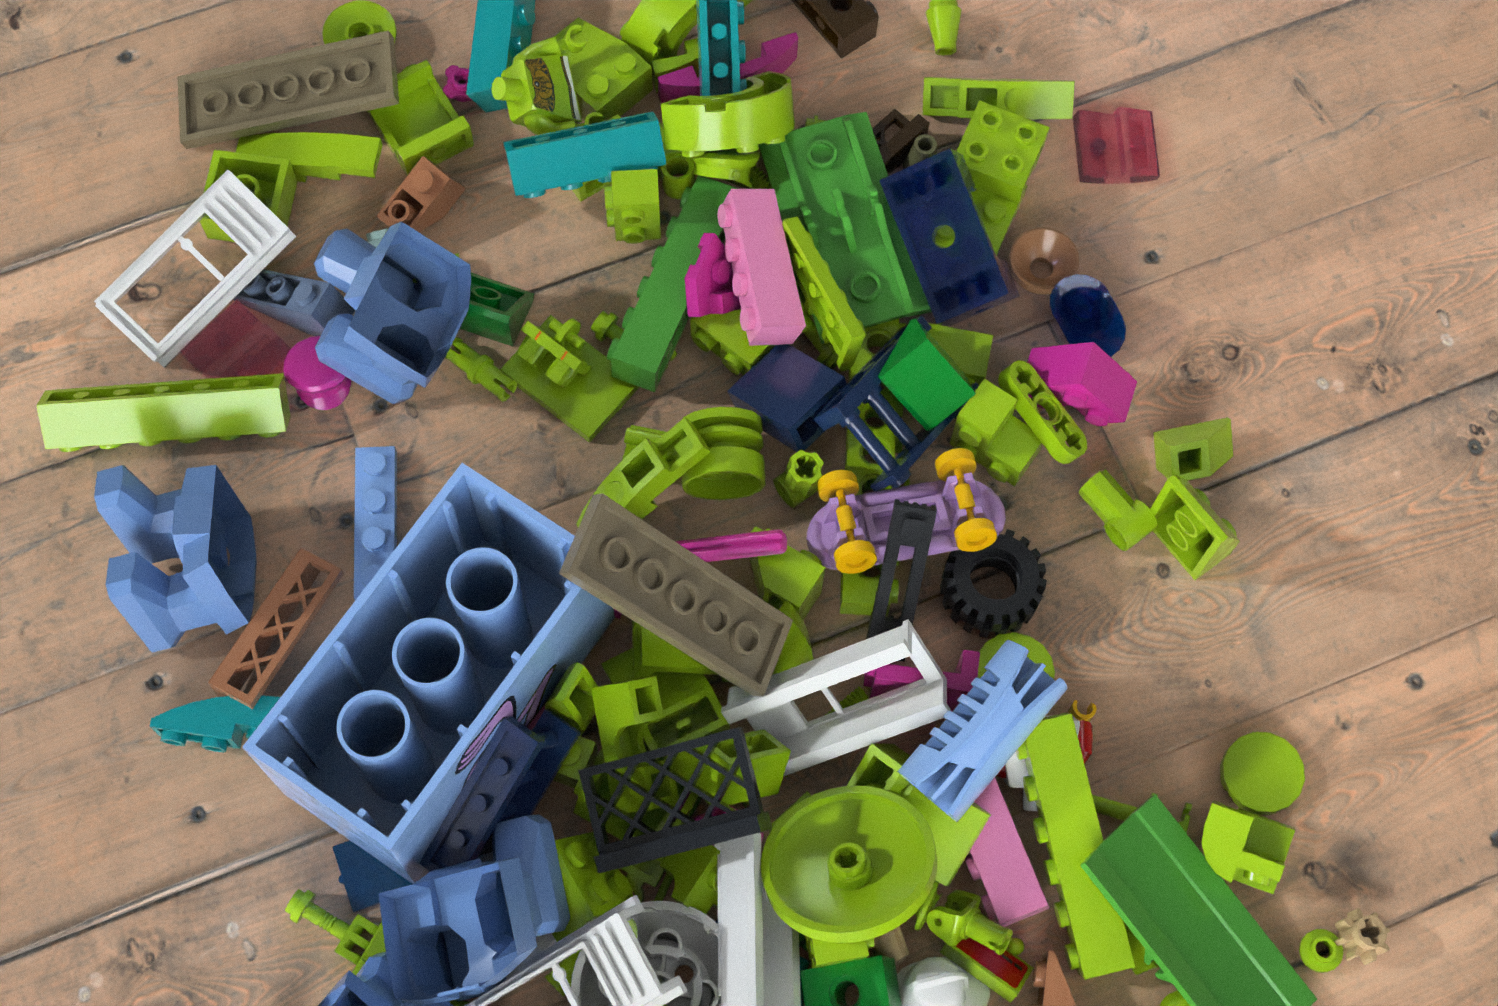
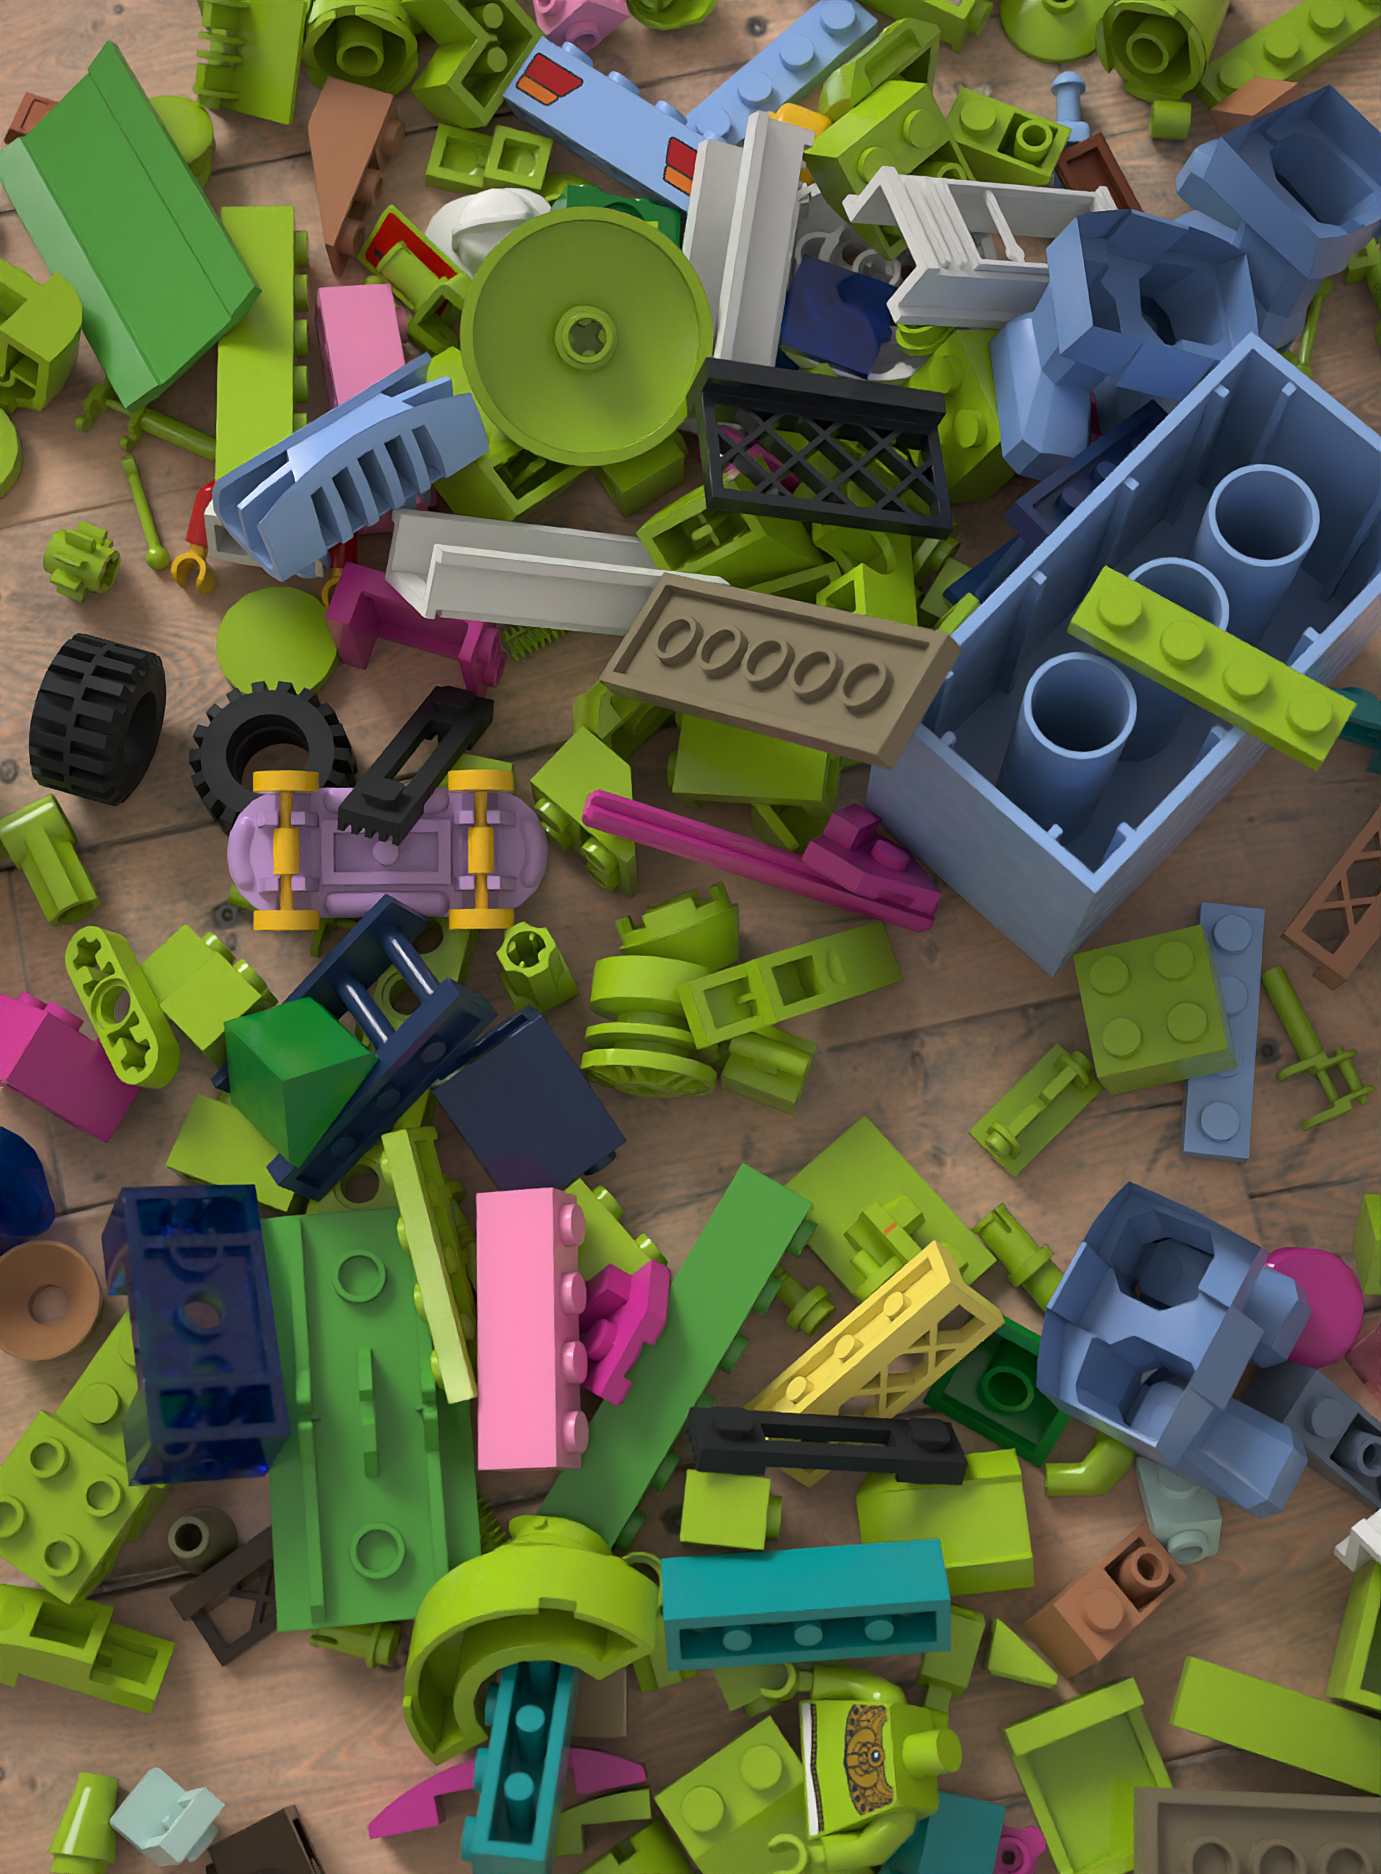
camera: 165 degrees left, 5 degrees up
(320, 517) = (1311, 1050): none -> lime piece
(401, 497) = (1155, 1010): none -> lime brick
(402, 605) = (1211, 668): none -> lime plate
(467, 168) = (1012, 1659): none -> lime slope
(492, 450) = (1037, 1109): none -> lime hinge
(498, 171) = (949, 1672): none -> lime piece
(513, 231) = (977, 1523): none -> lime slope
(568, 287) = (888, 1324): none -> light yellow fence
(637, 223) = (735, 1443): none -> black container
(681, 942) = (836, 317): none -> clear blue piece
(716, 509) = (686, 929): none -> lime cone
(901, 31) = (167, 1820): none -> light aqua bracket
(1109, 582) = (97, 719): none -> black tyre
(1109, 723) = (157, 556): none -> lime hinge
(1156, 701) = (81, 561): none -> lime gear

